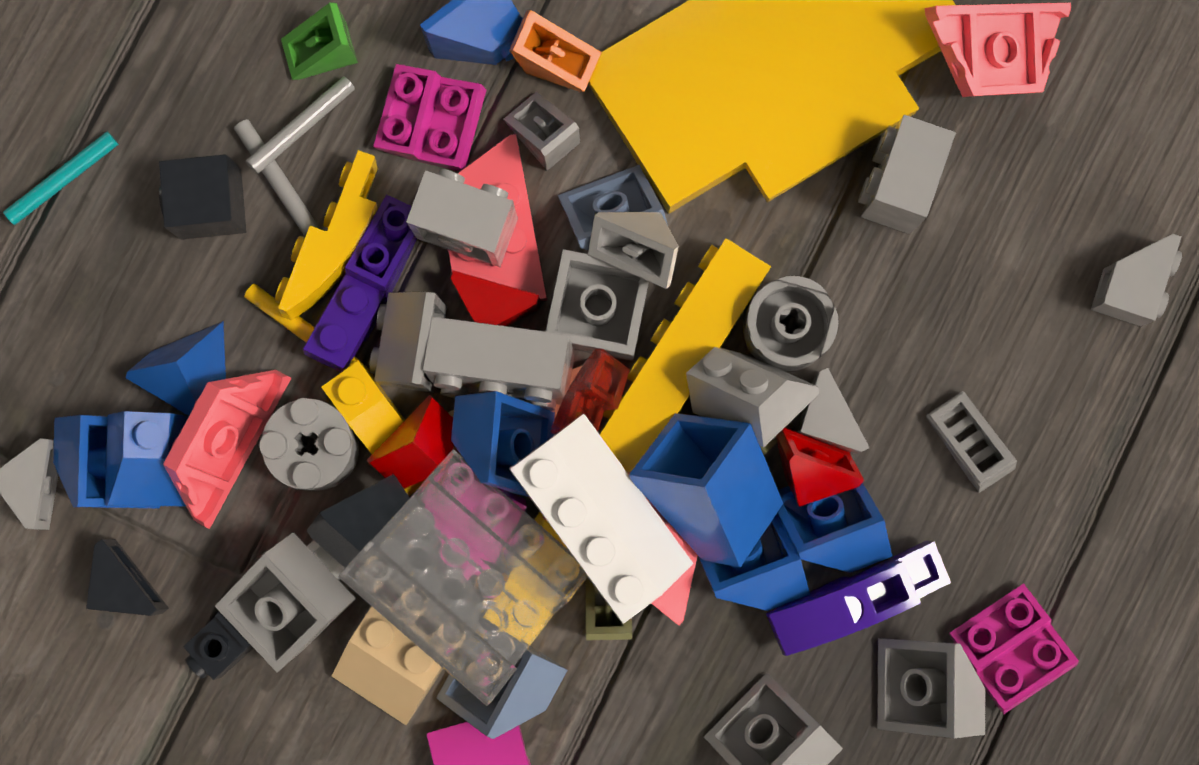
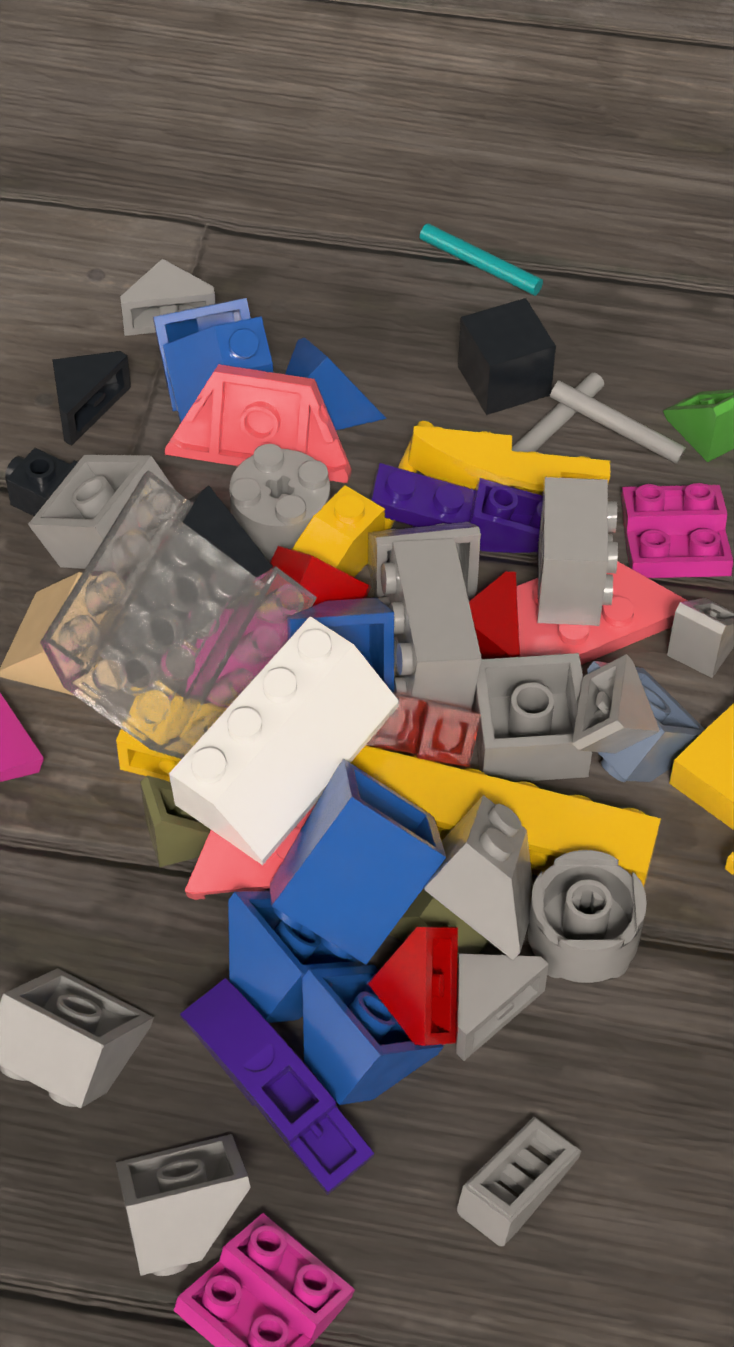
camera: 70 degrees right, 30 degrees down
(520, 699) = (67, 742): sand blue slope -> none

